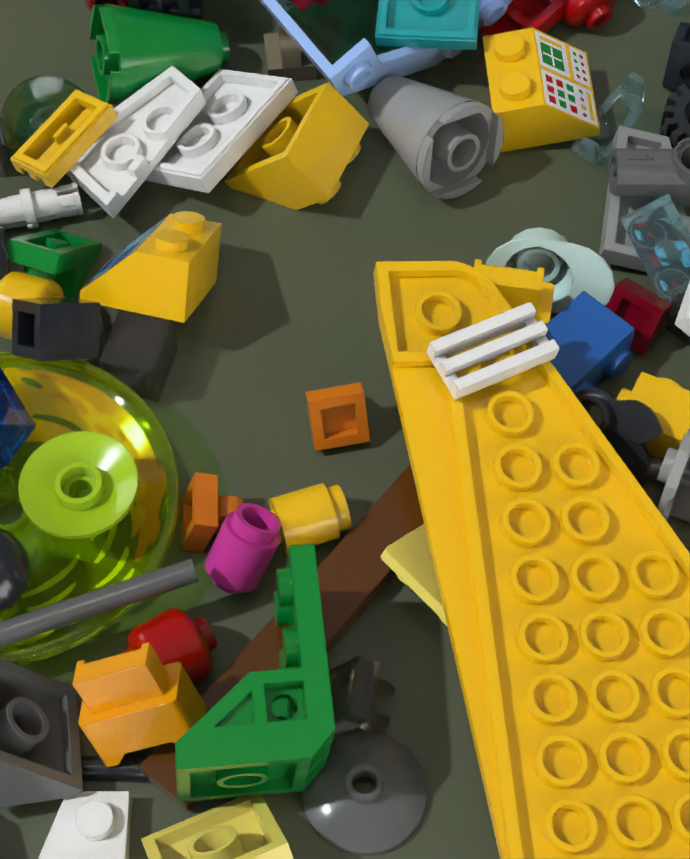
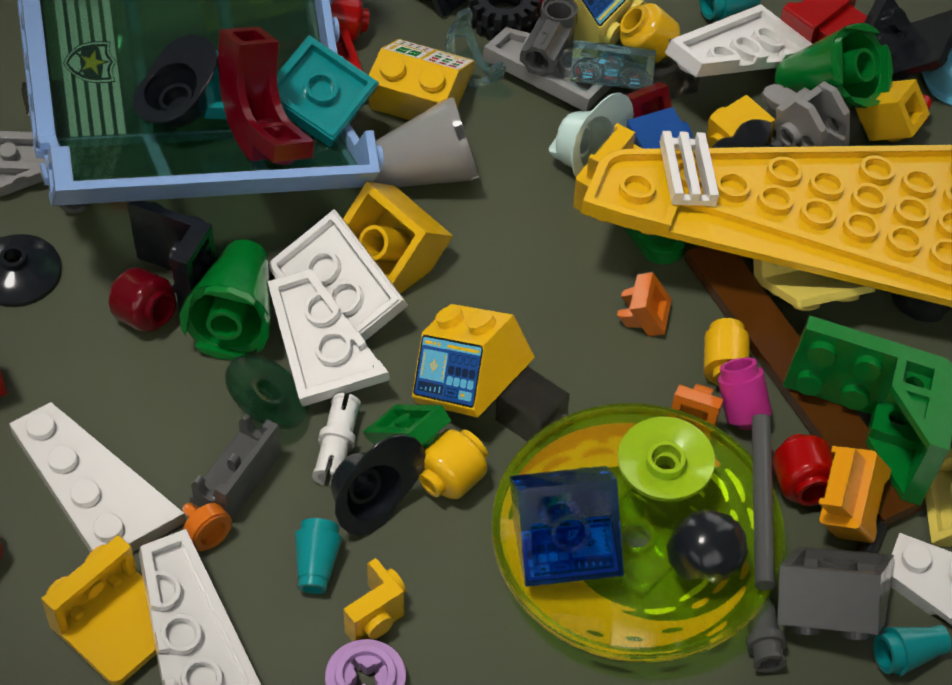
camera: 70 degrees left, 5 degrees down
(56, 328) = (505, 436): black brick -> none
(89, 121) = (312, 410): yellow tile -> none
(286, 58) = (277, 217): dark tan tile -> none

